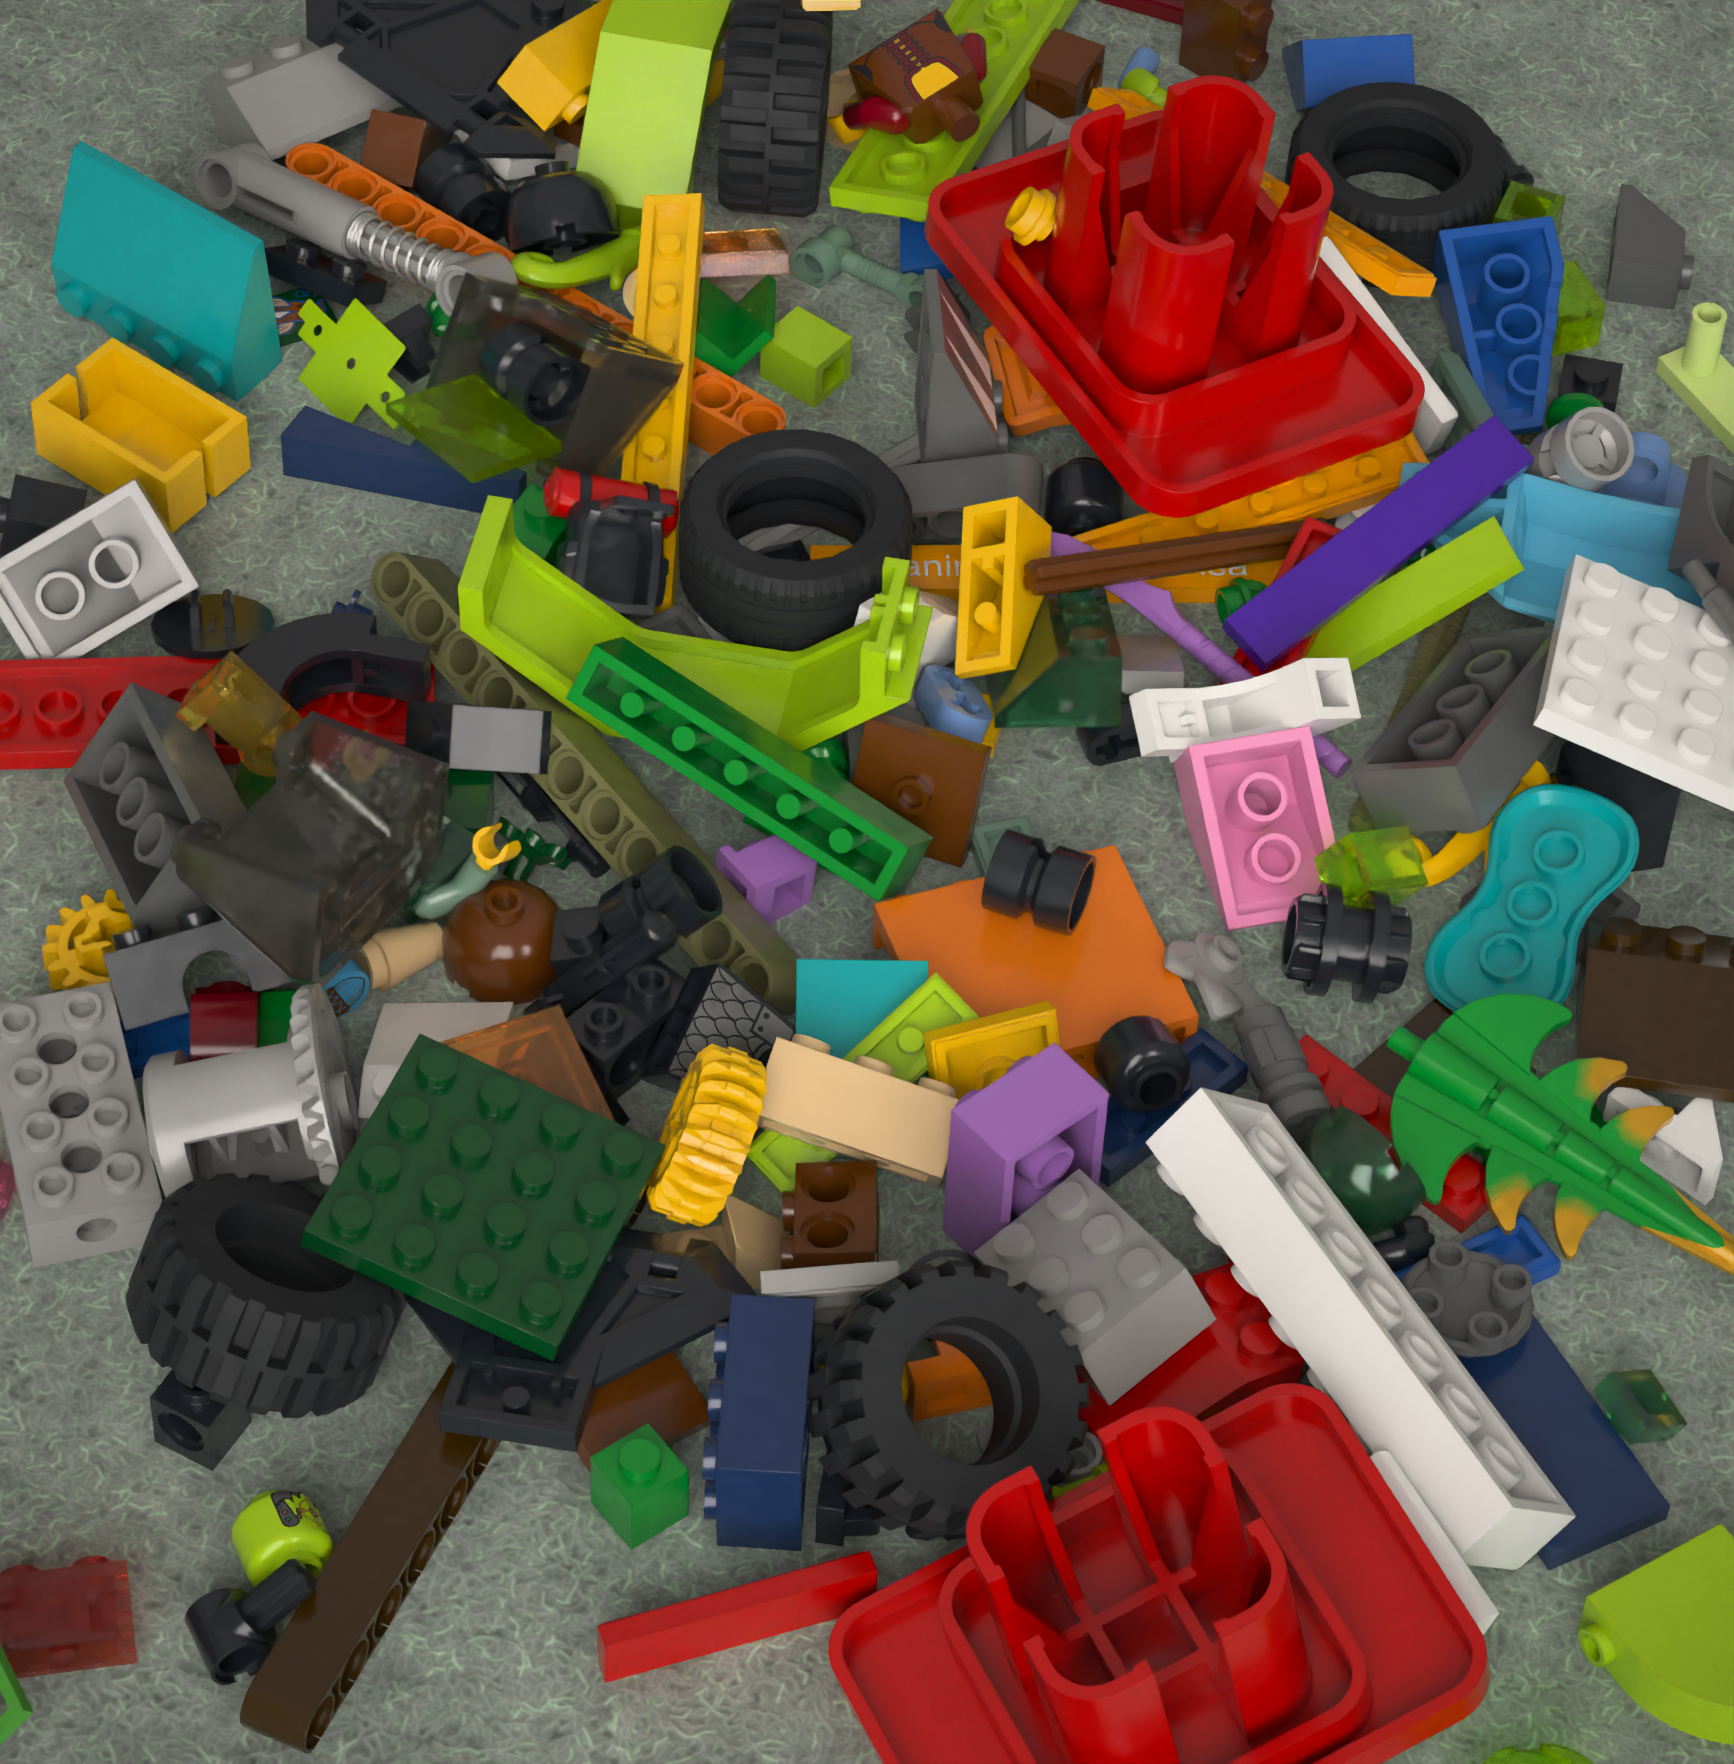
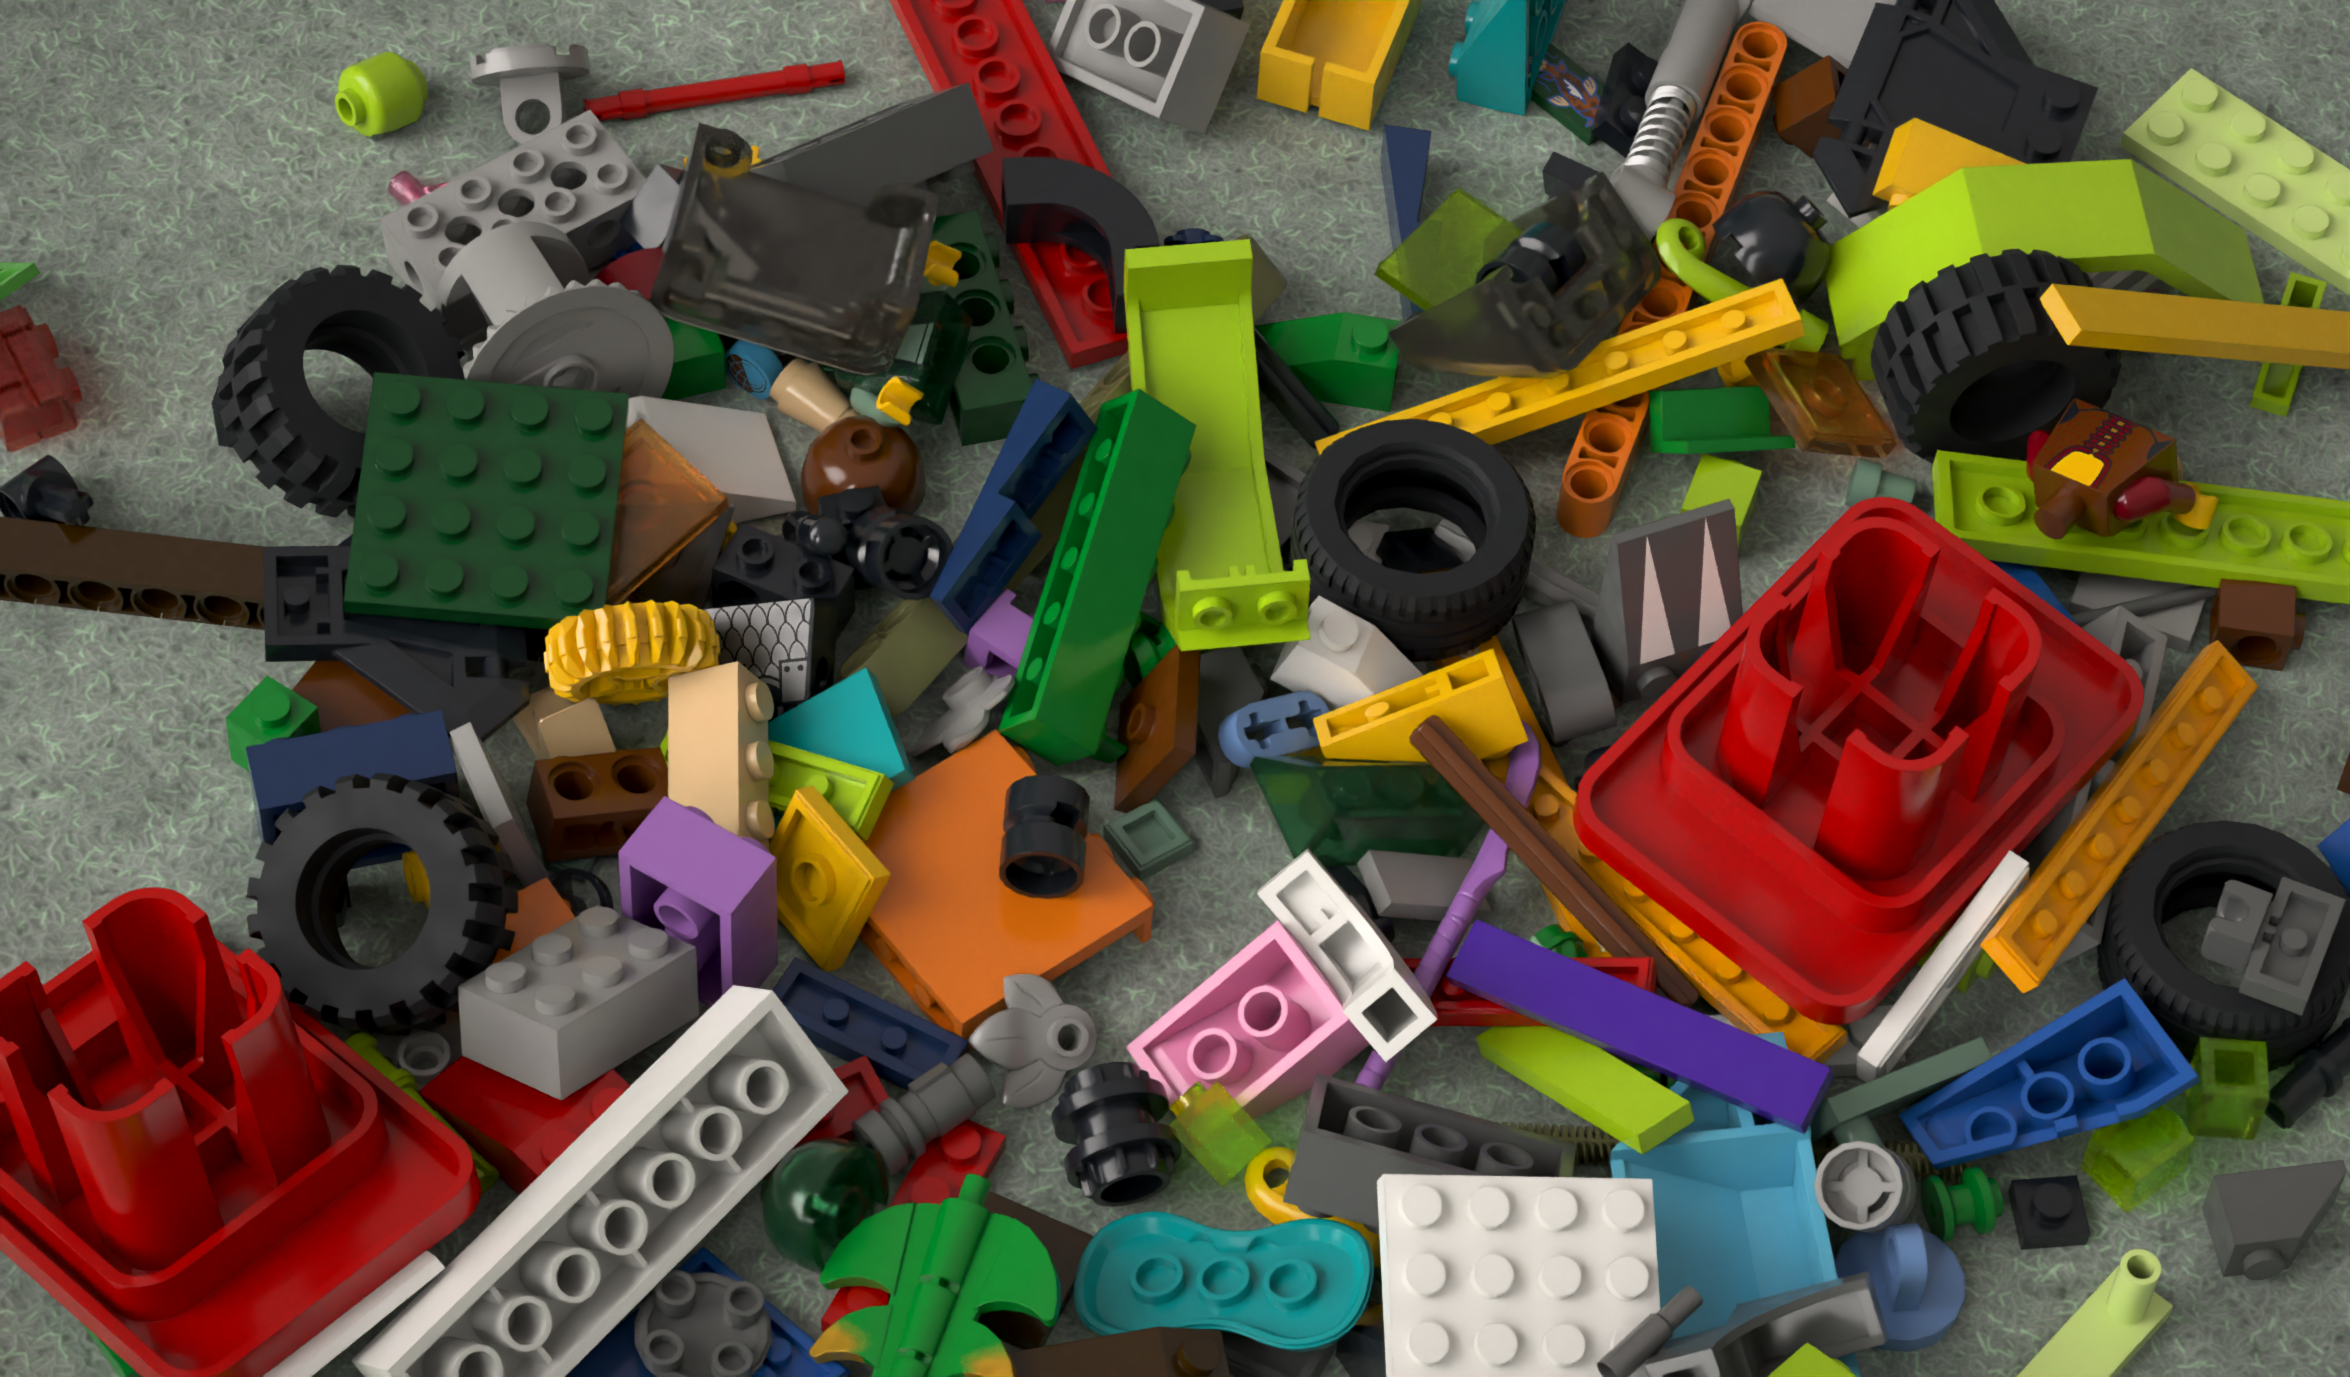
camera: 70 degrees right, 5 degrees up
(210, 625) = (1150, 158): black piece -> none
(240, 711) = (982, 184): clear yellow leg -> none
(278, 1529) = (136, 496): lime head -> none
(357, 337) = (1539, 147): lime piece -> none
(464, 189) = (1789, 168): black wheel -> none
(480, 736) = (1067, 354): slope -> none
(533, 851) = (975, 456): dark green plant -> none
(613, 537) = (1340, 390): black piece -> none
(670, 809) = (999, 528): none -> dark blue slope
(734, 1616) = (162, 840): red tile -> none
(832, 919) = (970, 704): none -> light grey plate
(1140, 76) = (2297, 693): lime arm -> none
(1141, 1064) = (874, 986): black head -> none
(1408, 1245) = (754, 1265): black arm -> none
(1445, 121) = (2276, 939): none -> dark grey plate

